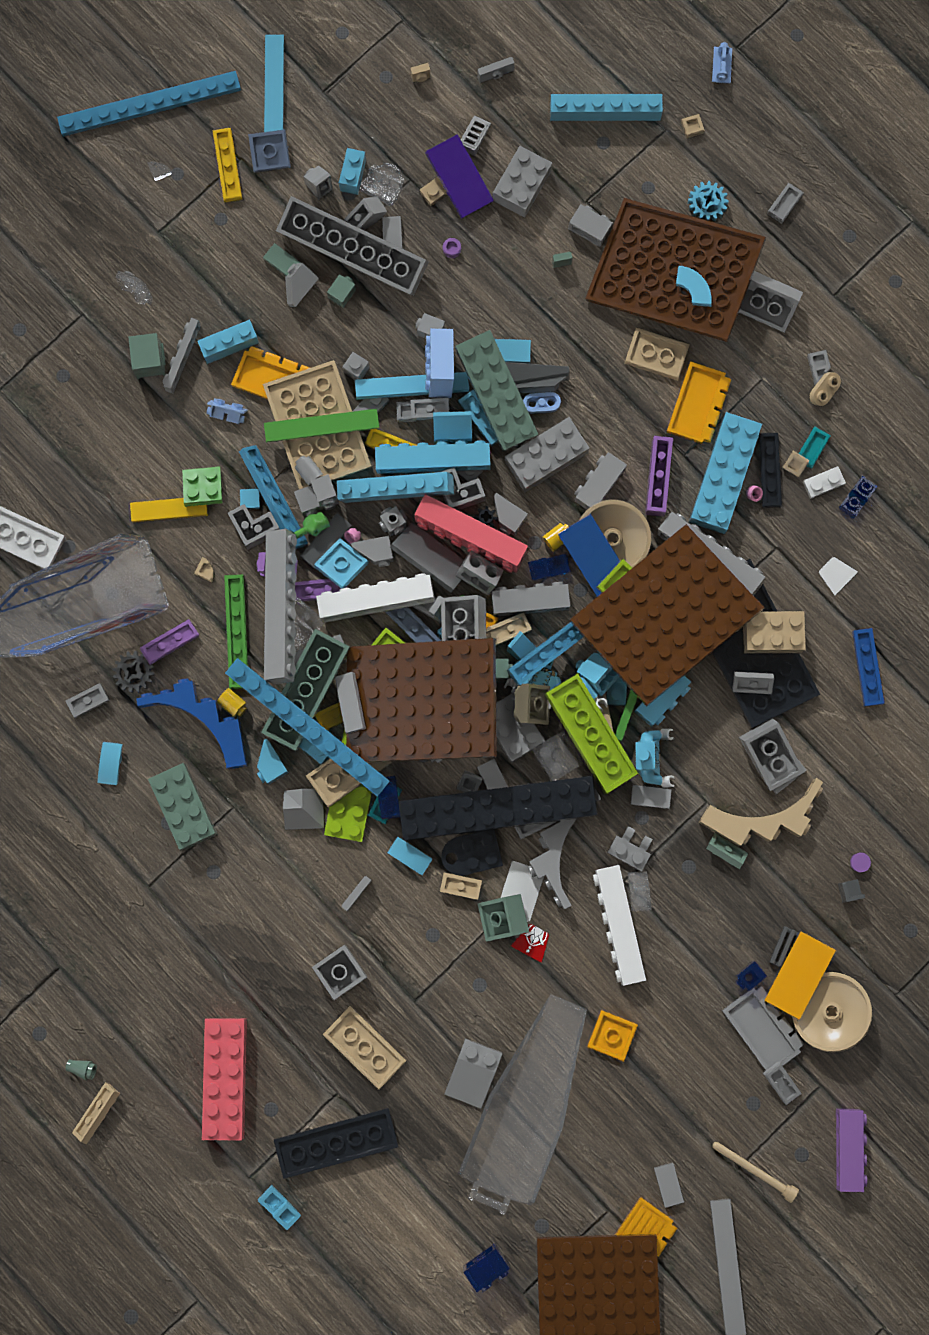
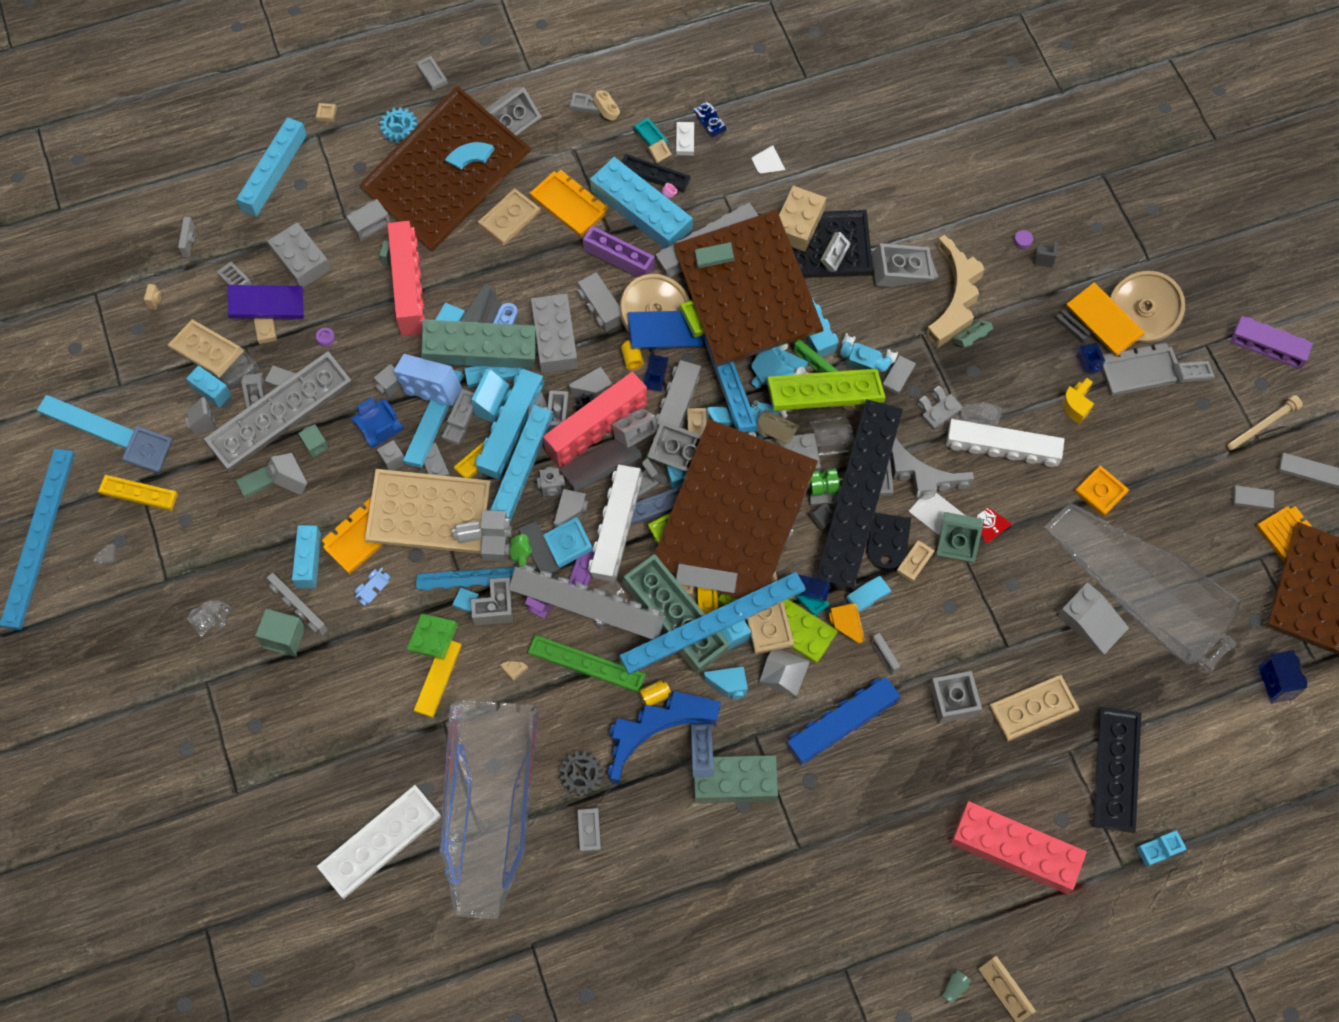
camera: 65 degrees left, 15 degrees down
(109, 763) = (661, 833): medium azure slope -> none
(169, 642) = (568, 727): medium lavender tile -> none
(190, 767) = (702, 750): none -> sand blue plate
(277, 880) = (843, 720): none -> blue brick
(321, 425) = (430, 505): bright green tile -> none
(352, 535) = (543, 527): bright pink hinge -> none
(372, 847) = (848, 621): none -> light orange slope
(385, 337) = (376, 421): none -> blue panel
(388, 148) = (205, 348): none -> tan tile
(498, 770) = (825, 482): none -> bright green wheel
(540, 290) = (406, 277): none -> coral brick
(684, 569) = (714, 255): none -> sand green tile
(693, 976) = (1074, 402): none -> yellow brick
(722, 64) = (286, 70): light blue hinge -> none
(868, 667) = (859, 167): blue plate -> none

